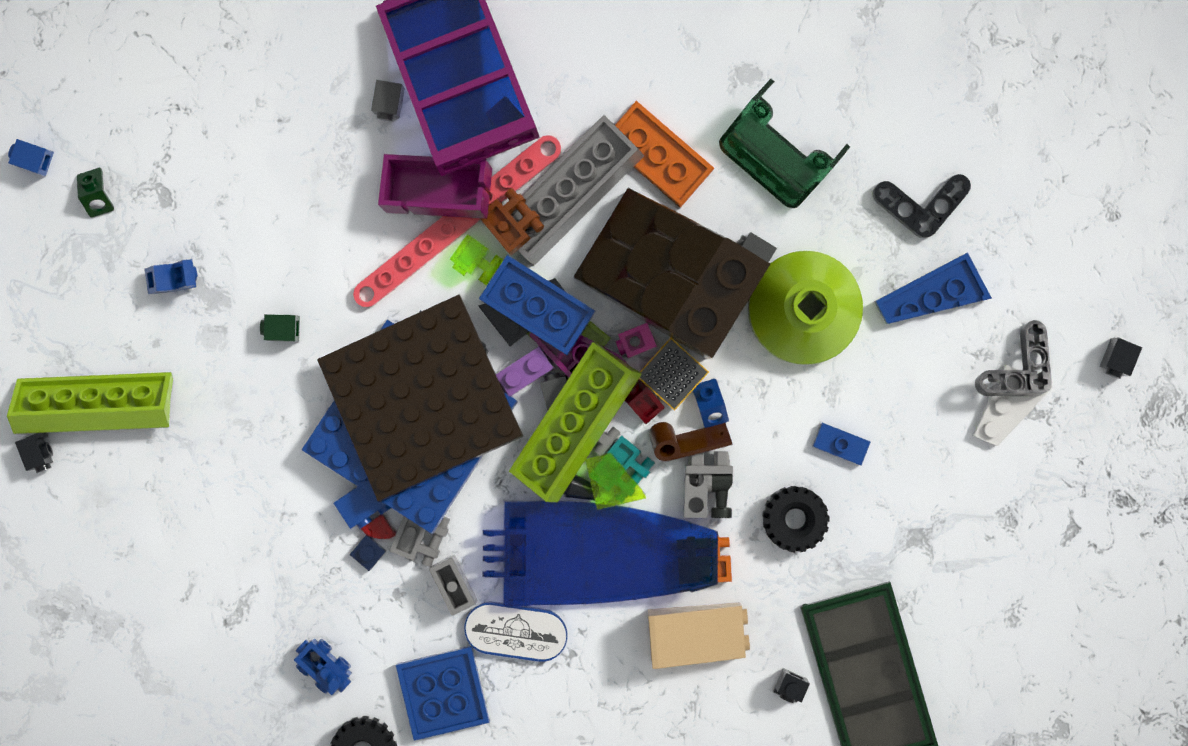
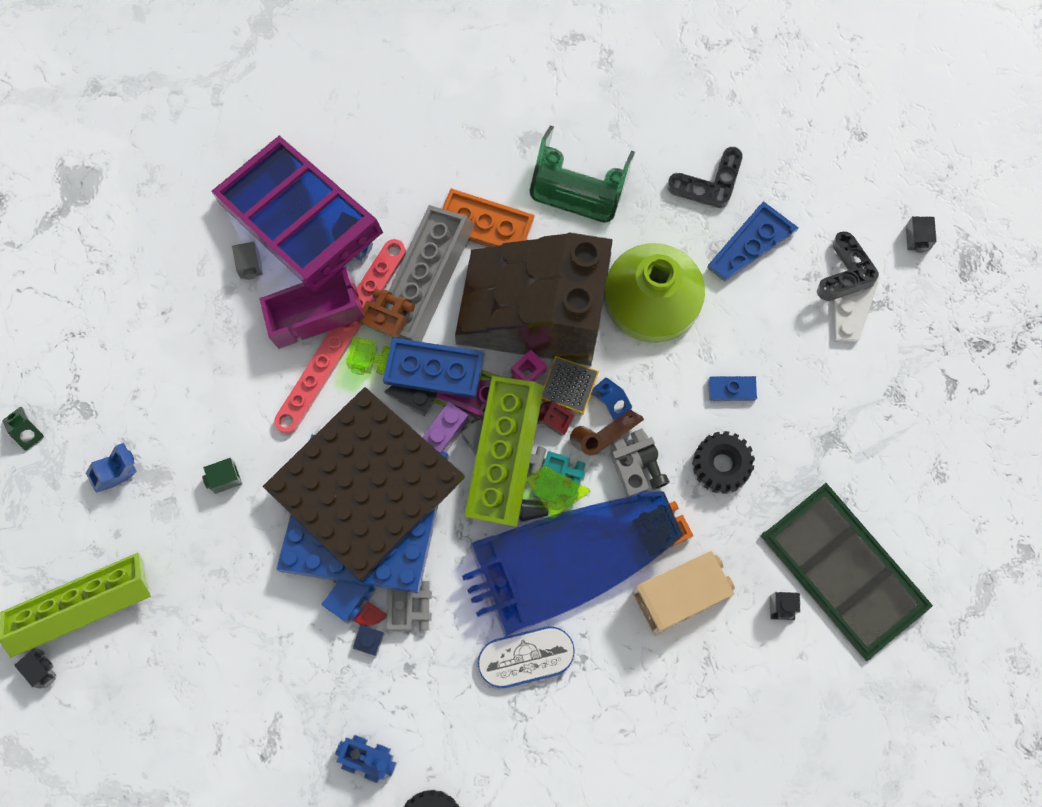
camera: 20 degrees left, 15 degrees down
(442, 693) = (483, 739): blue plate -> none
(453, 585) = (454, 635): light grey brick -> none

